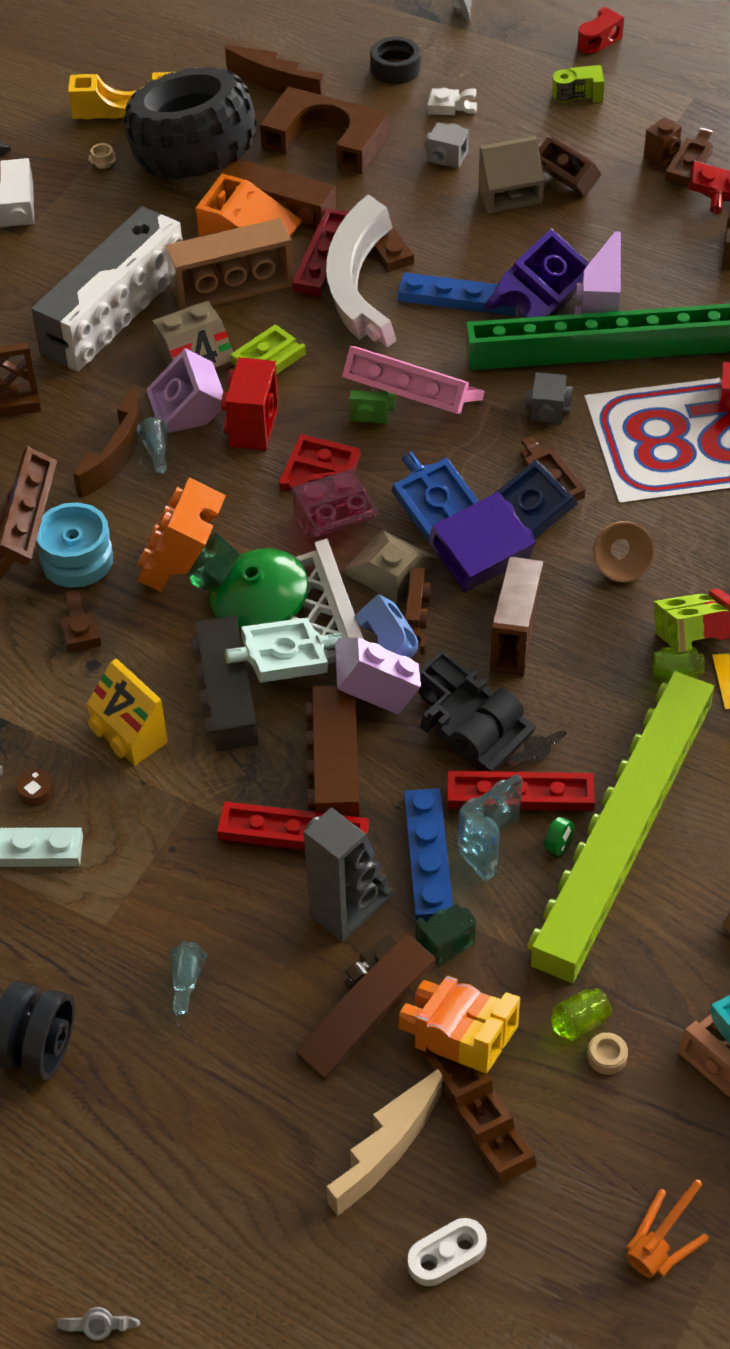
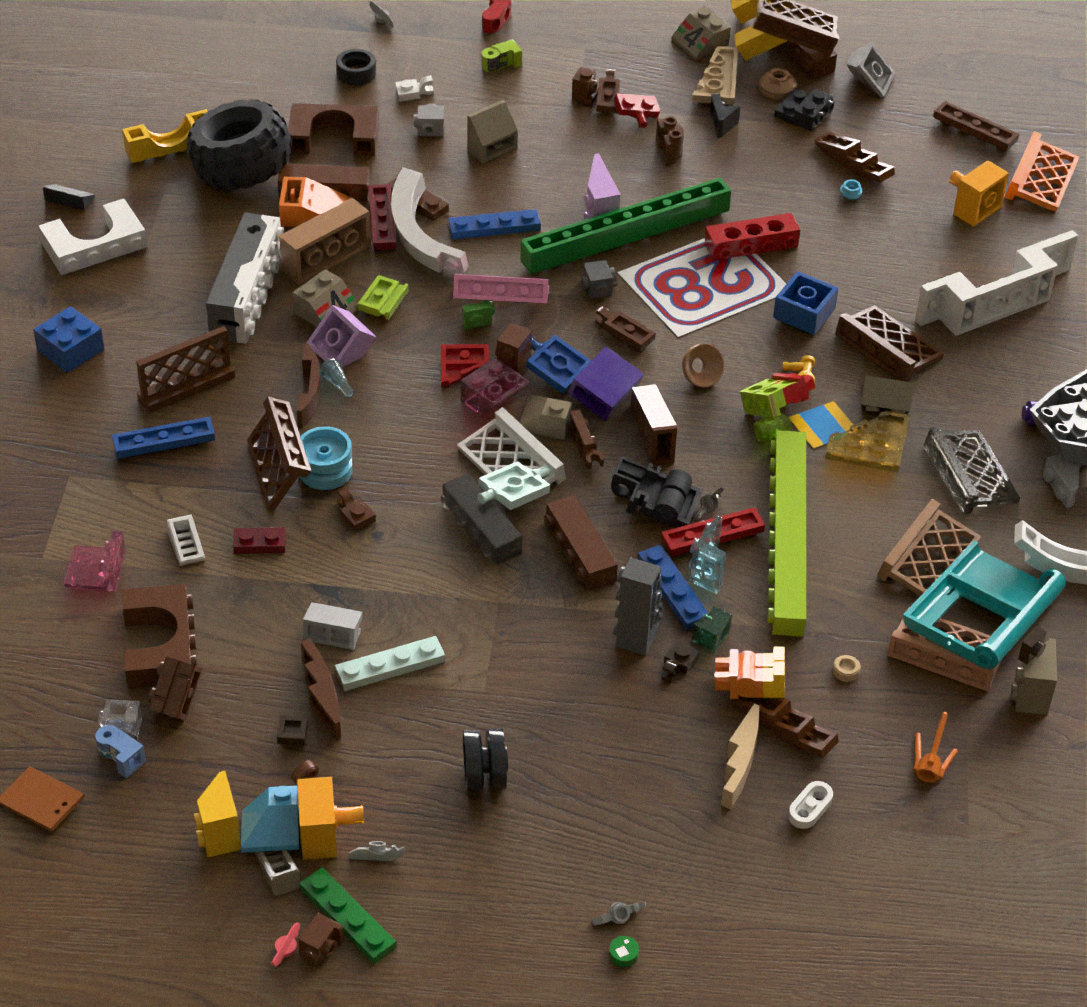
camera: 25 degrees left, 5 degrees down
(35, 786) = (386, 620): reddish brown tile -> none
(102, 156) = (173, 185): tan plate -> none
(127, 714) = (429, 554): yellow slope -> none
(180, 533) = (404, 429): orange piece -> none
(186, 966) = (556, 695): clear light blue cone -> none
(213, 563) = (430, 443): clear green brick -> none
(250, 403) = (396, 332): red brick -> none
(261, 588) = (468, 450): green dish -> none
(269, 72) = (279, 95): reddish brown slope -> none
(270, 825) = (572, 597): red plate -> none
(365, 1007) = (687, 684): reddish brown slope -> none
(375, 674) = (586, 482): lavender slope -> none
(381, 464) = (515, 347): none -> reddish brown brick
(387, 622) = (583, 455): medium blue leg -> none
(537, 498) = (627, 343): dark blue tile -> none
(541, 278) = (554, 199): dark purple brick -> none
(559, 836) = (752, 551): green tile -> none
(568, 166) = (529, 116): reddish brown brick -> none
(581, 1013) = (820, 649): clear neon green brick -> none

